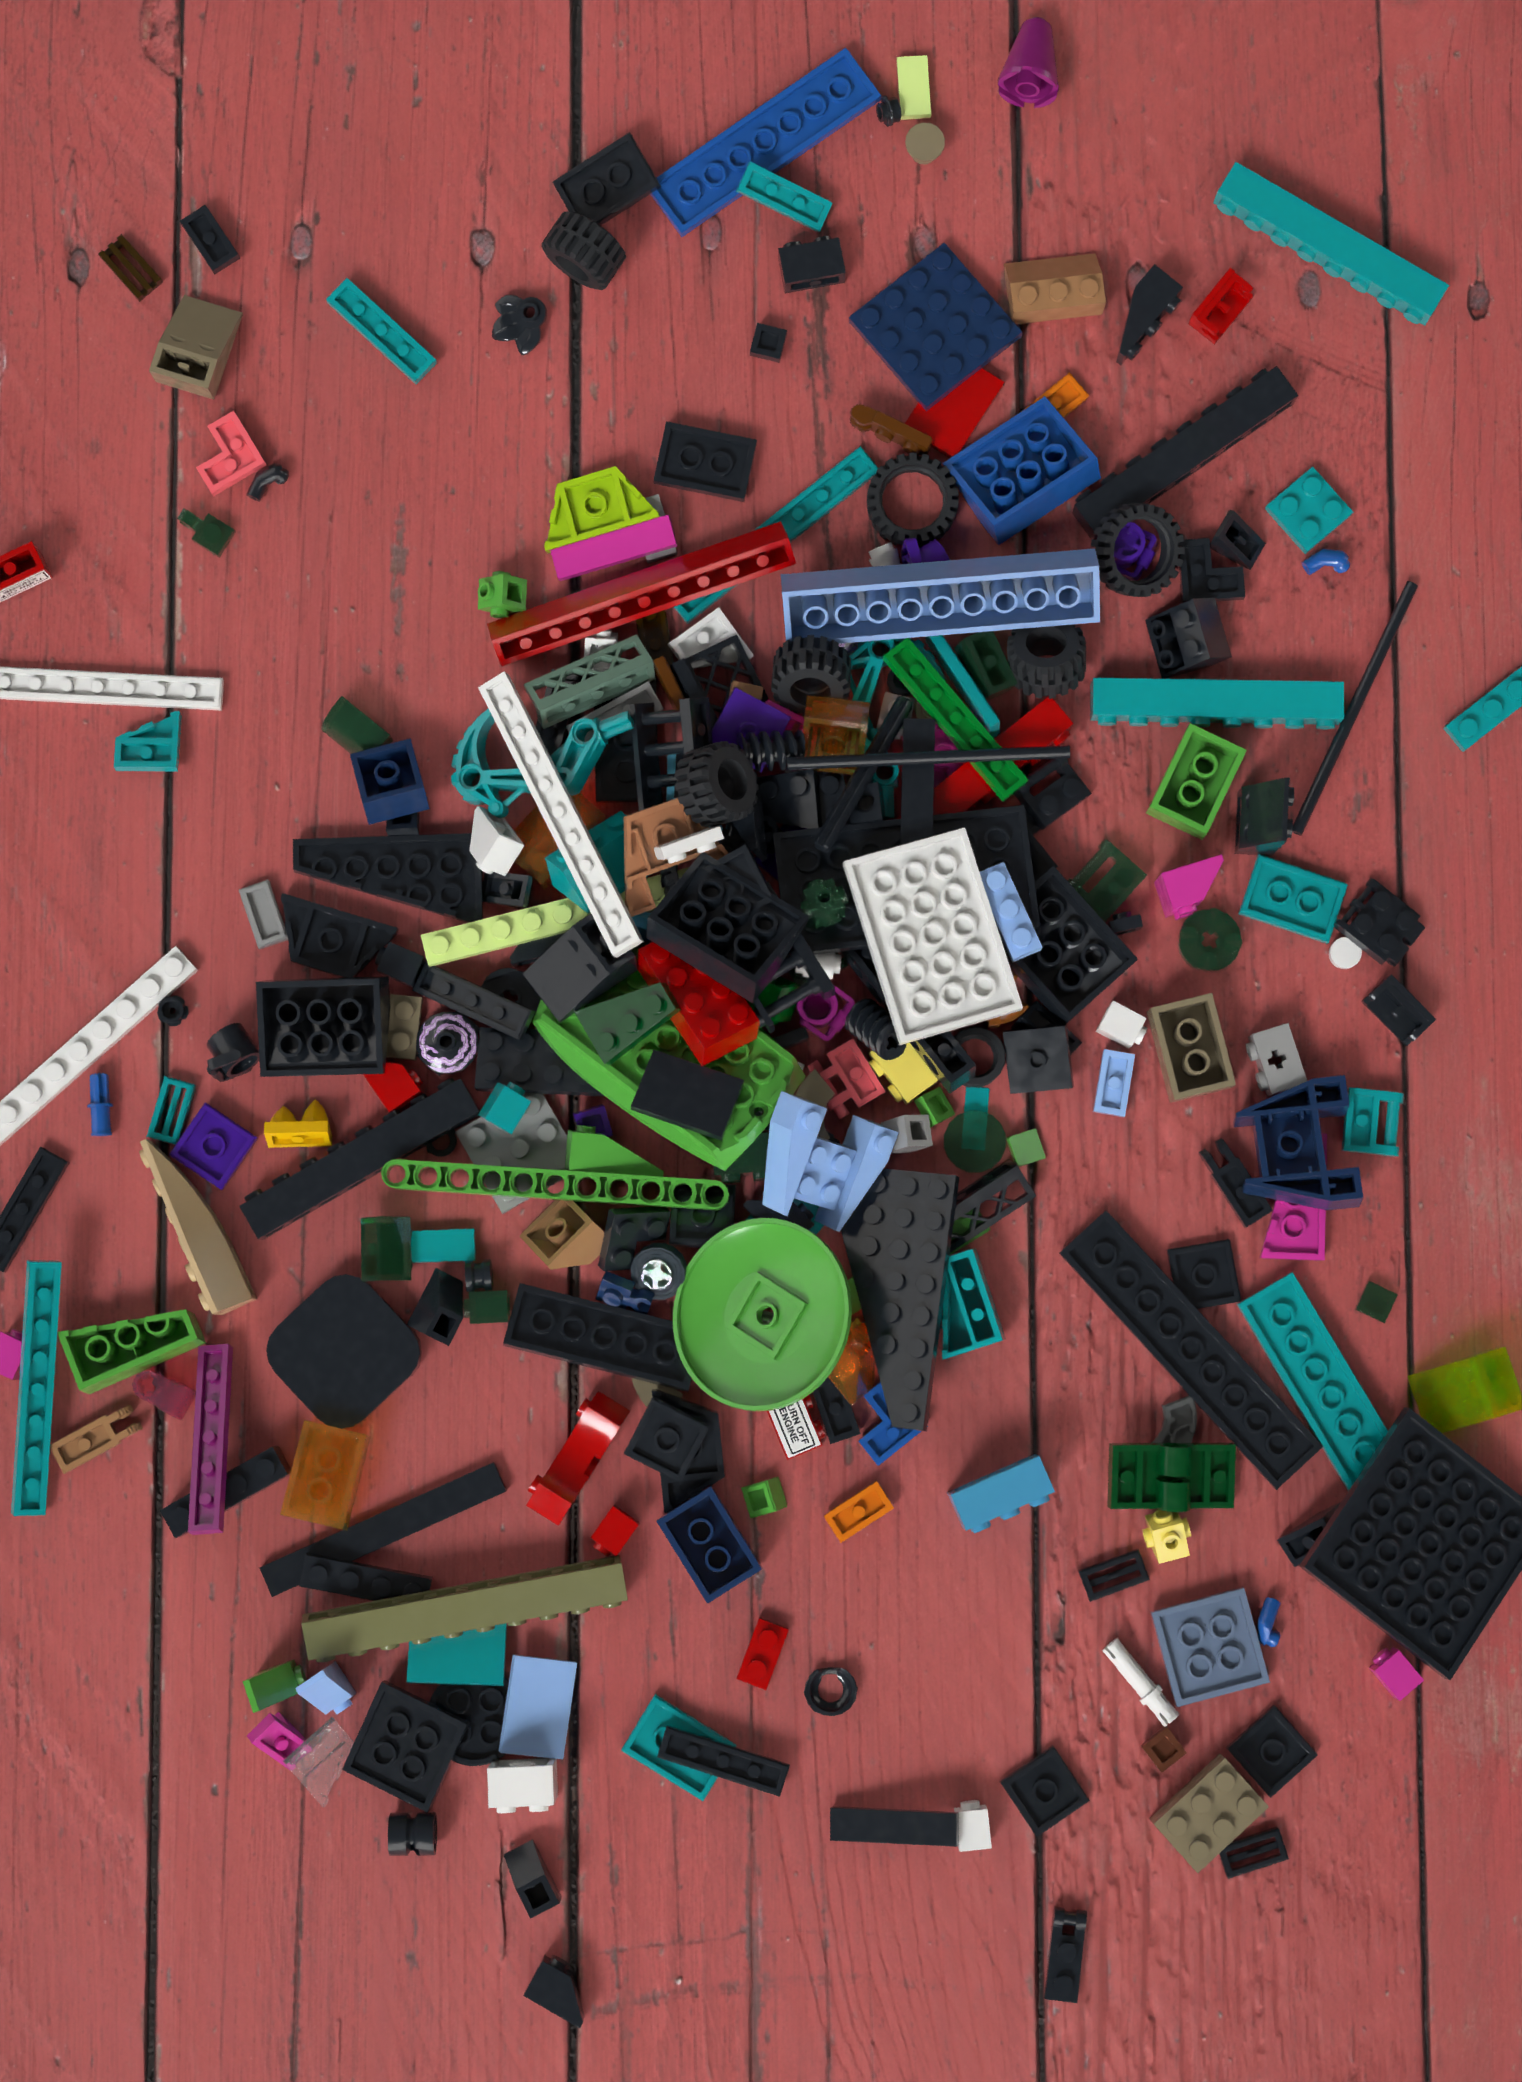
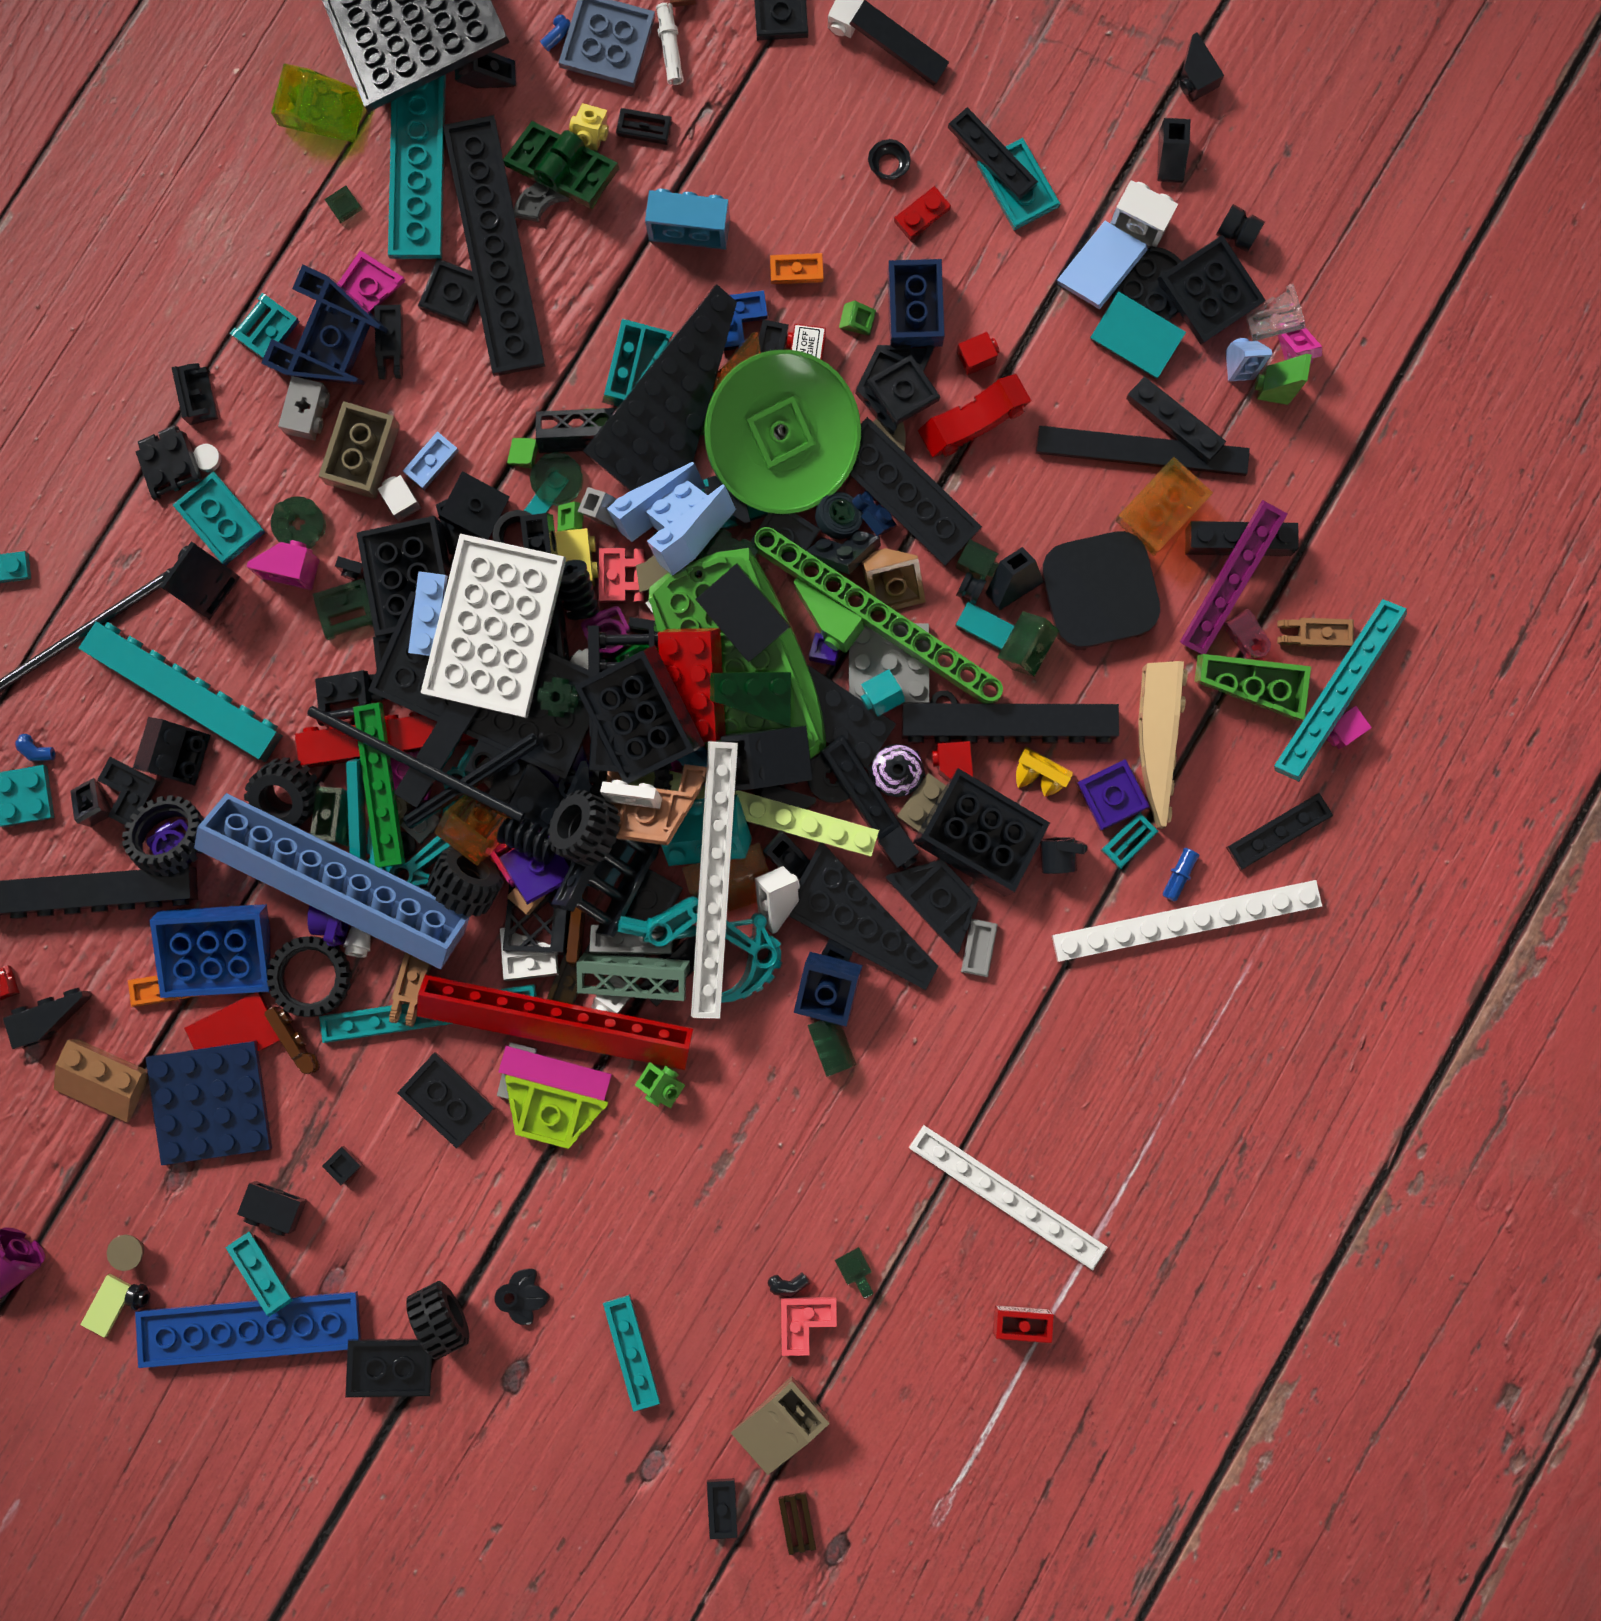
camera: 150 degrees left, 0 degrees up
(150, 747) = (993, 1125): teal wing -> none
(164, 1010) = (1095, 914): black plate -> none
(464, 1608) = (1116, 357): olive brick -> none
(805, 541) = (407, 988): none -> medium nougat hinge
(1196, 781) = (232, 639): bright green brick -> none

